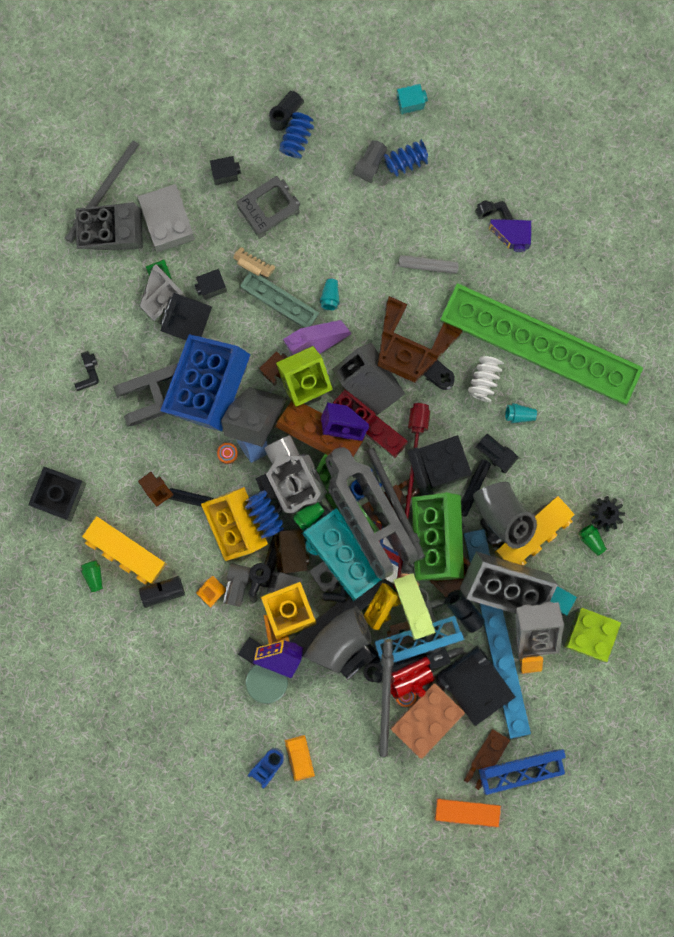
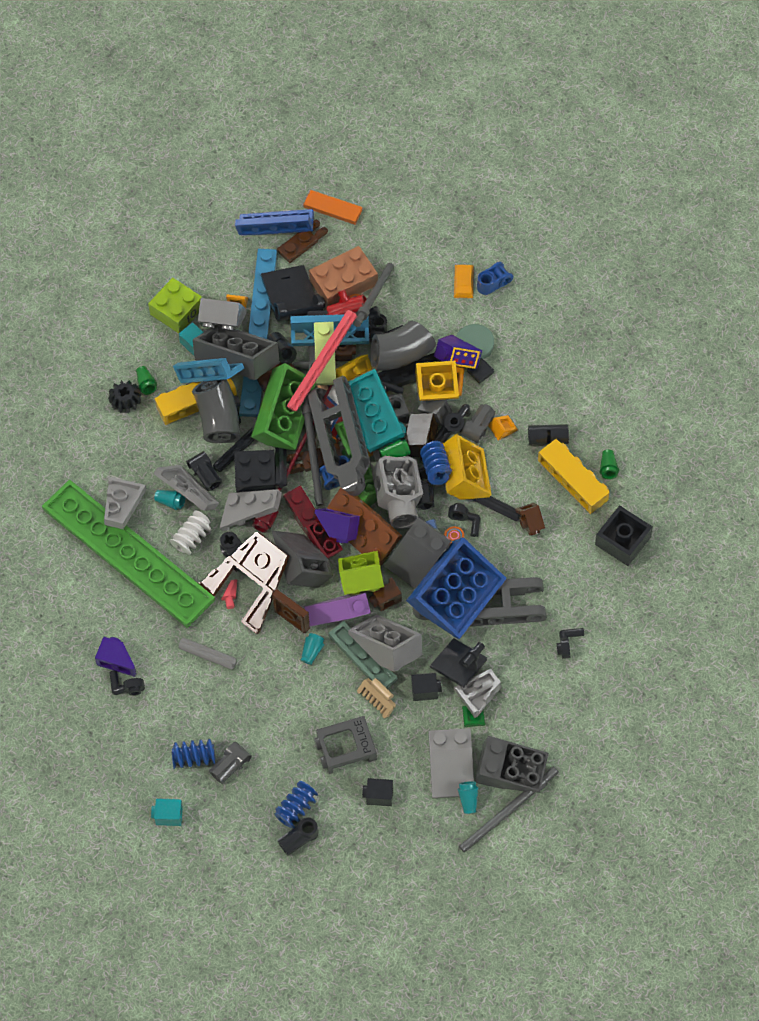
camera: 160 degrees left, 20 degrees down
(141, 189) = (468, 795): none -> teal cone
(228, 479) = (461, 513): none -> black plate
(260, 317) = (388, 642): none -> light grey slope
(360, 318) = (291, 611): none -> reddish brown tile
(412, 590) = (322, 360): none -> coral axle
(427, 331) = (230, 594): none -> coral bar
(438, 422) = (248, 505): none -> light grey wing
(508, 428) = (186, 485): none -> light grey wing
(527, 547) = (206, 370): none -> dark azure fence
(566, 396) = (122, 501): none -> light grey wing

